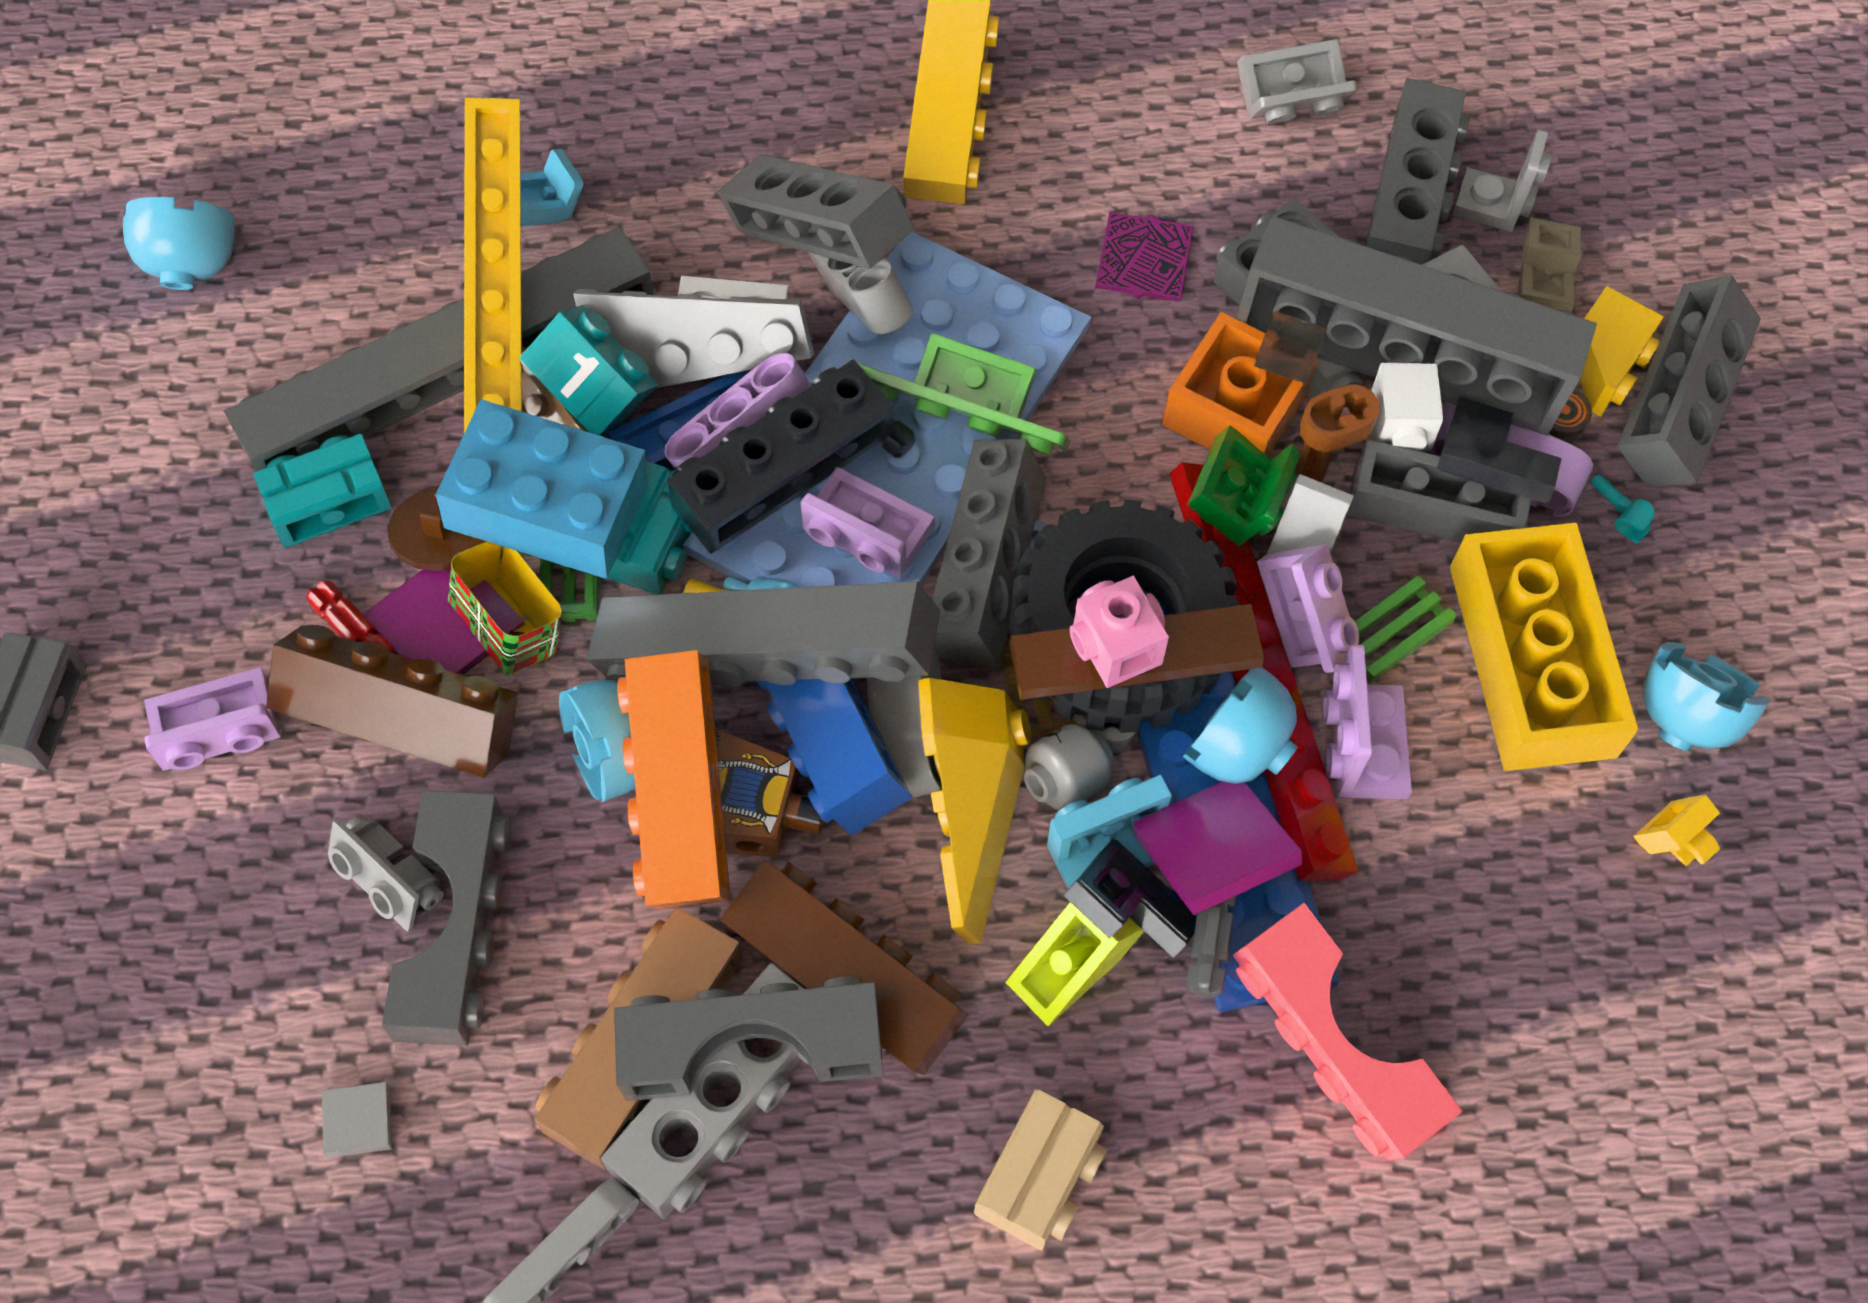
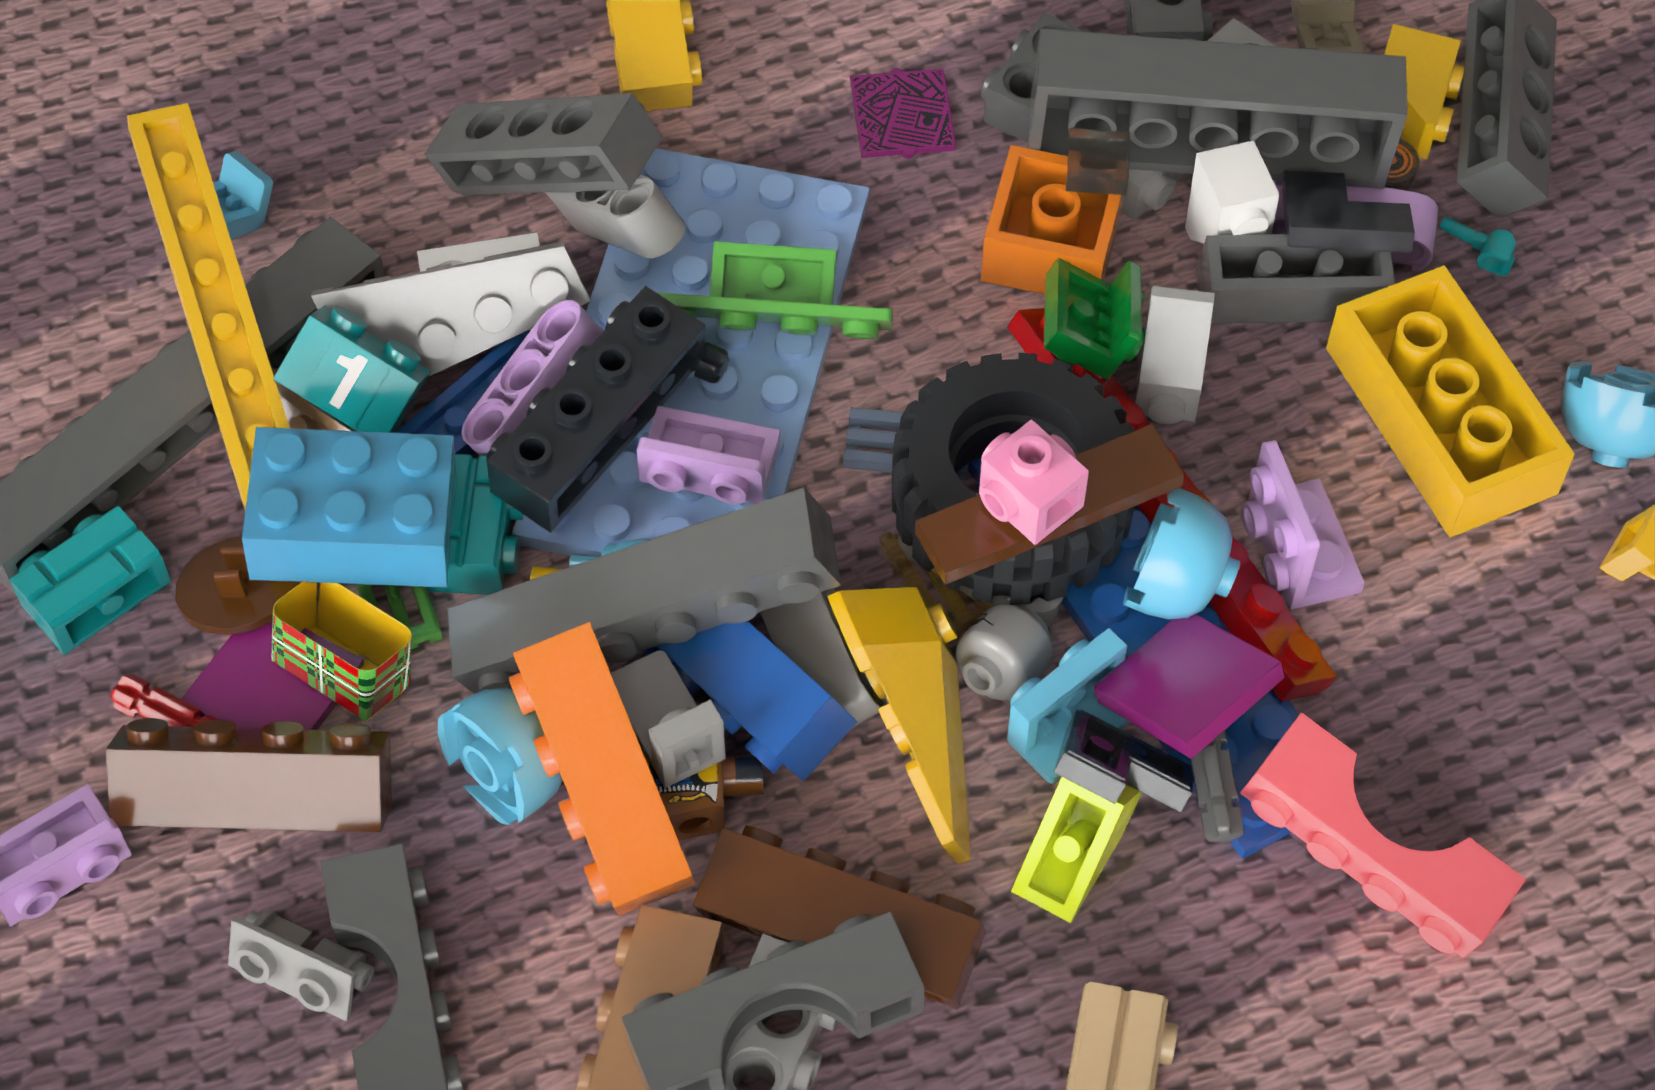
camera: 15 degrees left, 5 degrees down
(749, 748) = (666, 720): none -> light grey bracket
(984, 551) = (846, 450): dark grey brick -> none
(1309, 606) = (1202, 420): lavender bracket -> none
(1328, 431) = (1161, 238): dark orange piece -> none
(1426, 603) = (1315, 391): bright green tile -> none

